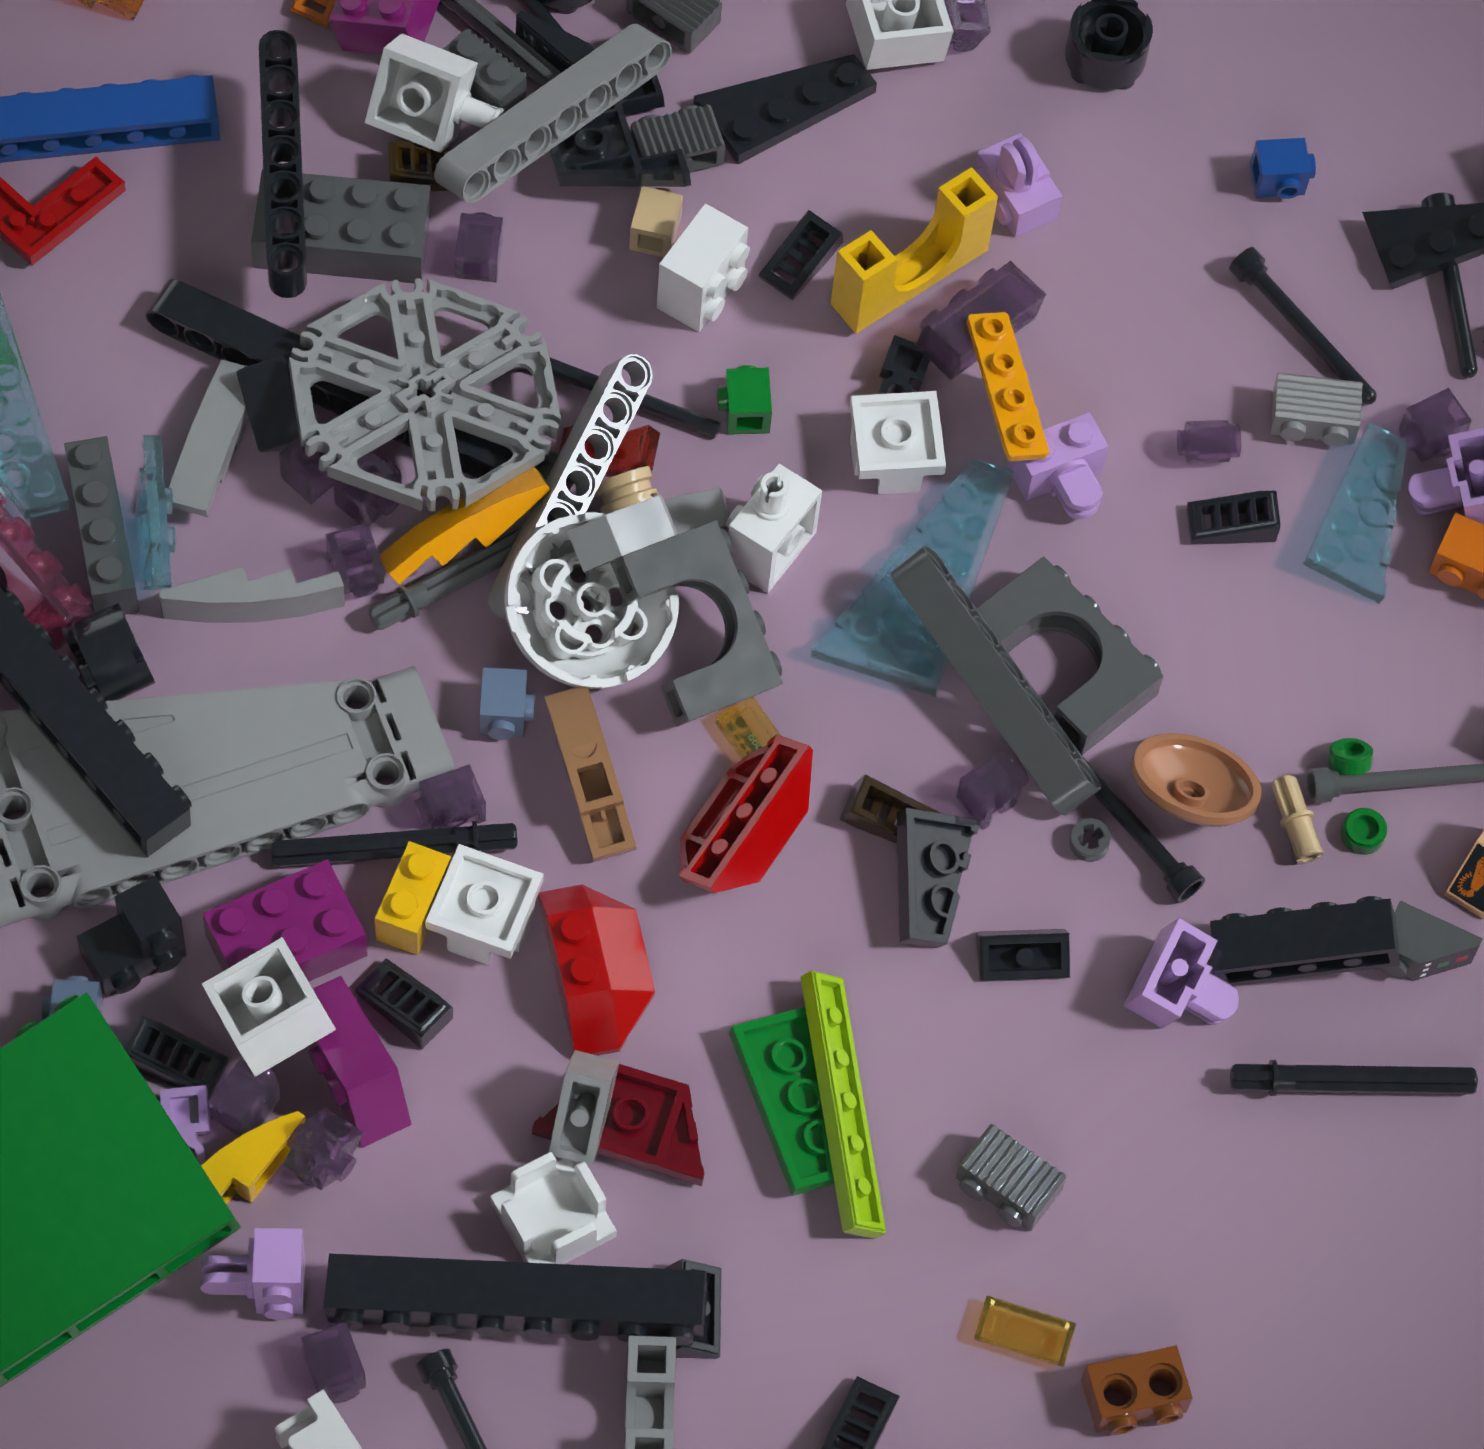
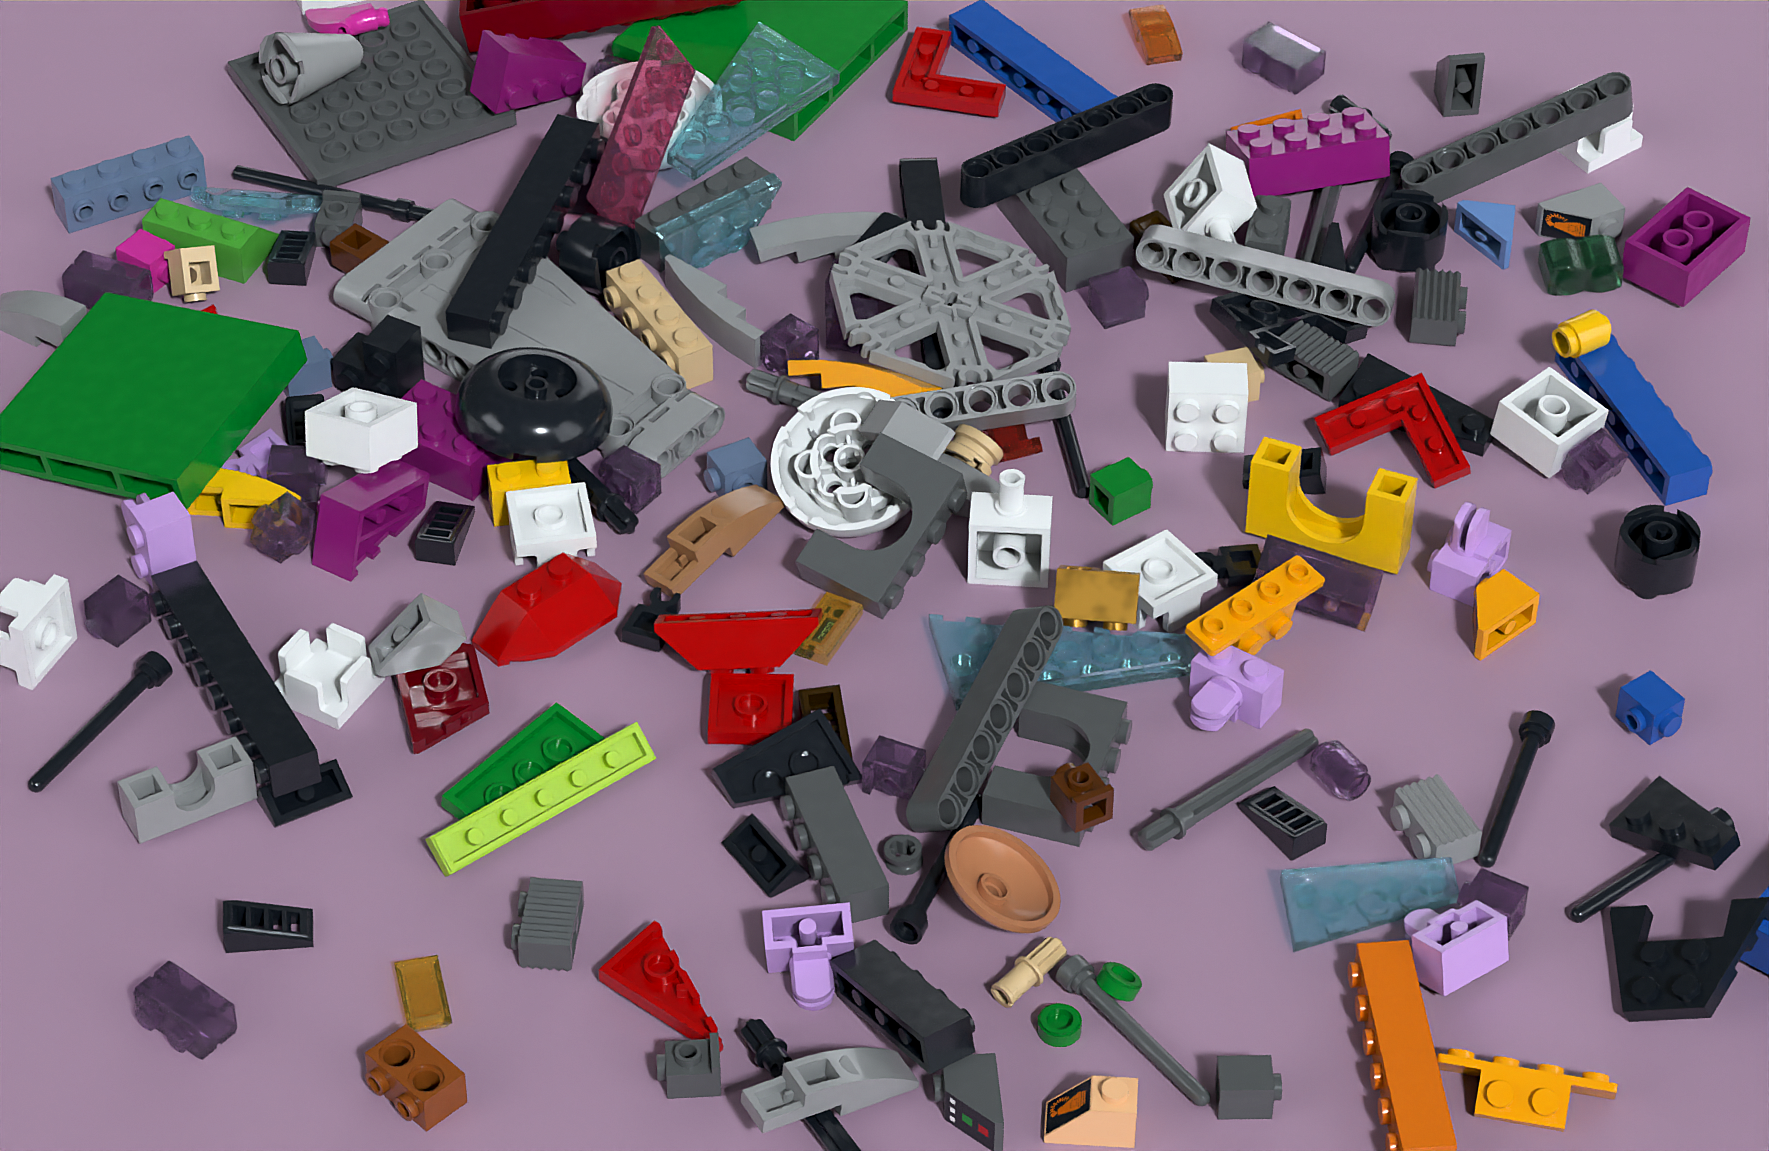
camera: 65 degrees right, 20 degrees down
(242, 655) = (659, 322): none -> tan brick
(336, 873) = (534, 405): none -> black brick
(661, 887) = (640, 625): none -> black plate
(814, 108) = (1401, 404): none -> red plate
(833, 864) = (749, 707): none -> red plate
(900, 509) = (1096, 596): none -> pearl gold brick
(1057, 889) = (835, 843): none -> dark grey brick
(1096, 206) = (1501, 611): none -> light orange slope
(1128, 1128) = (653, 980): none -> red wing
(1154, 660) = (1077, 787): none -> reddish brown brick
(1188, 601) = (1175, 821): none -> dark grey axle
(1262, 1135) = (691, 1068): none -> dark grey brick
(1361, 1055) = (828, 1080): none -> light grey slope

